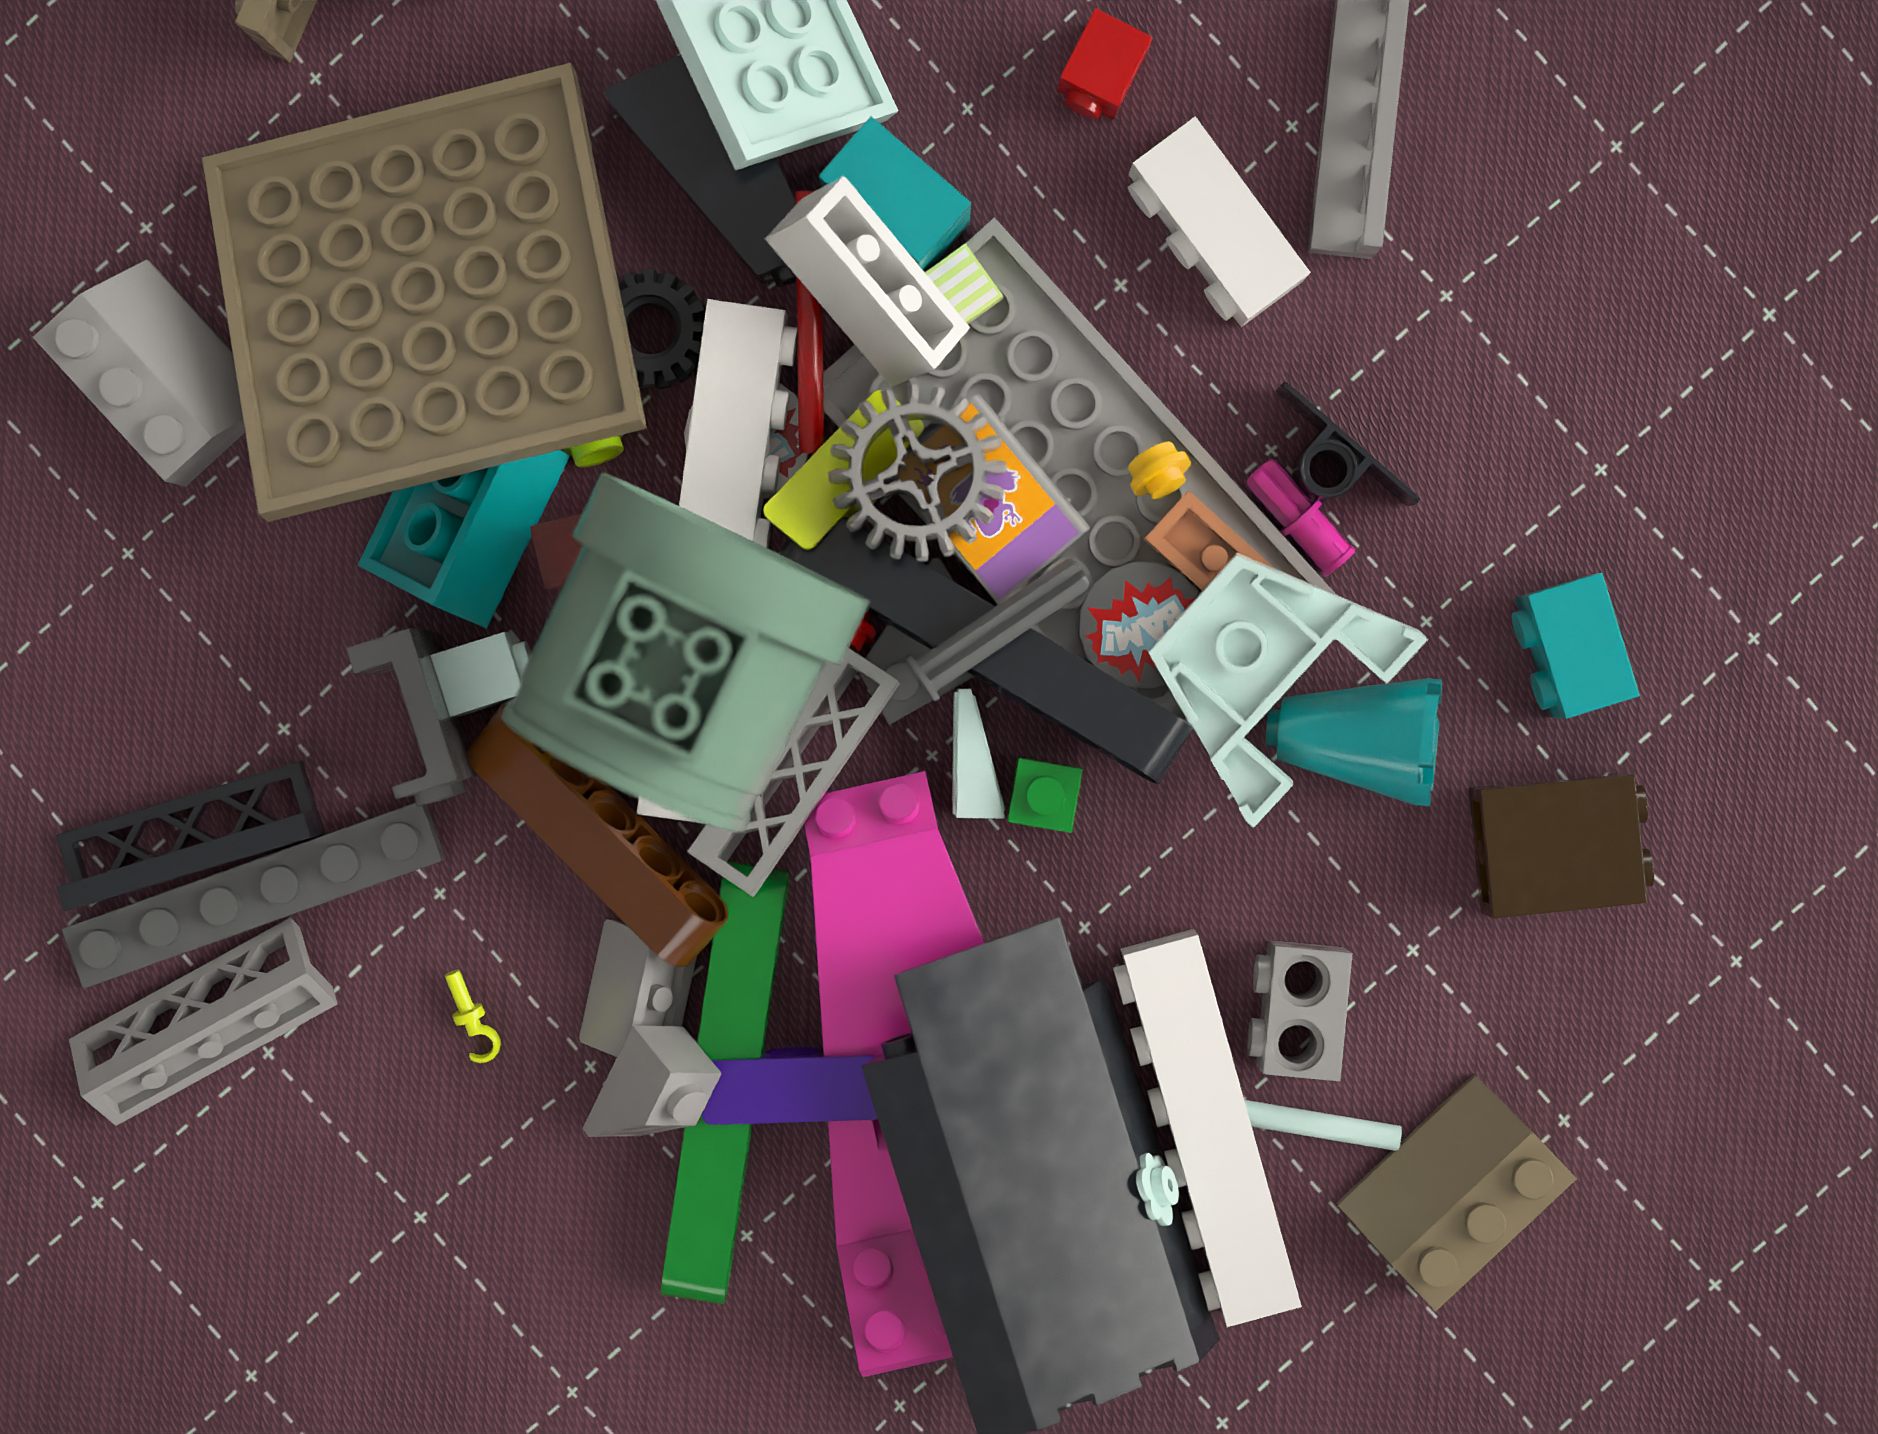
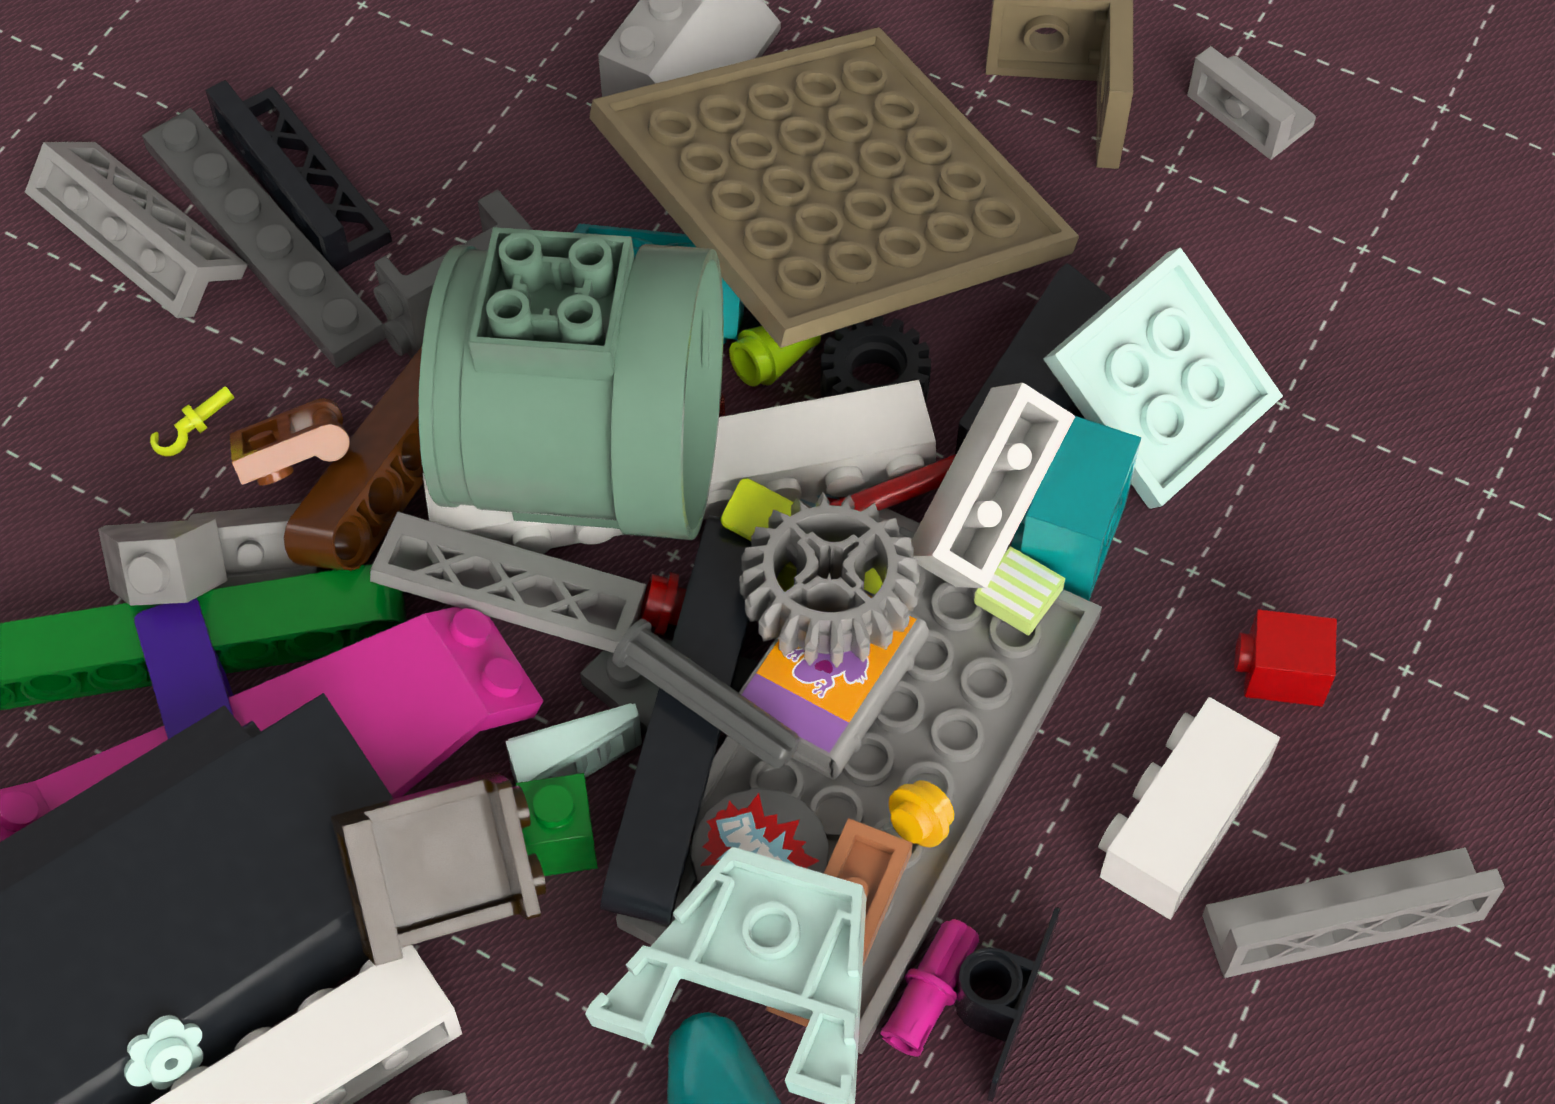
camera: 70 degrees right, 30 degrees down
(549, 953) = (275, 444): none -> plate
(1075, 915) = (438, 863): none -> panel

